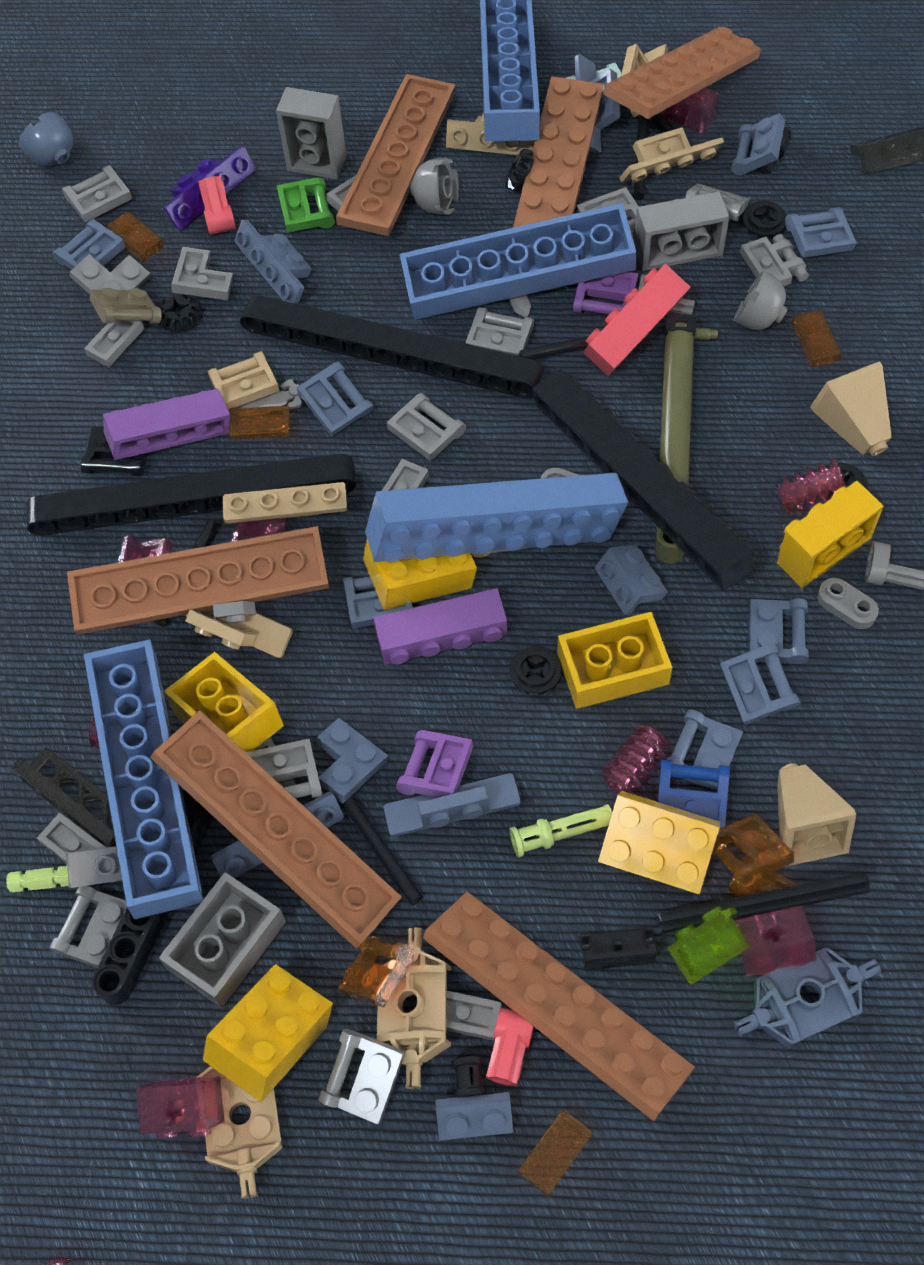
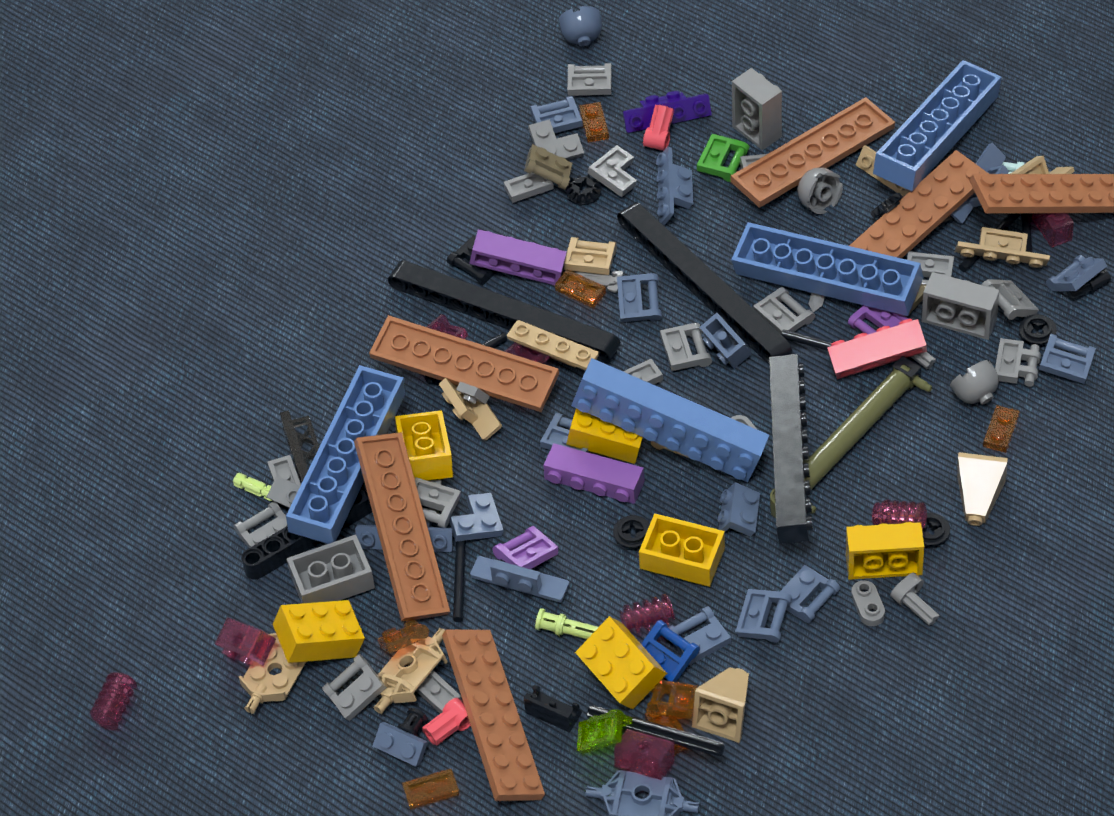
camera: 35 degrees right, 10 degrees down
(468, 395) = (725, 340): none -> sand blue brick

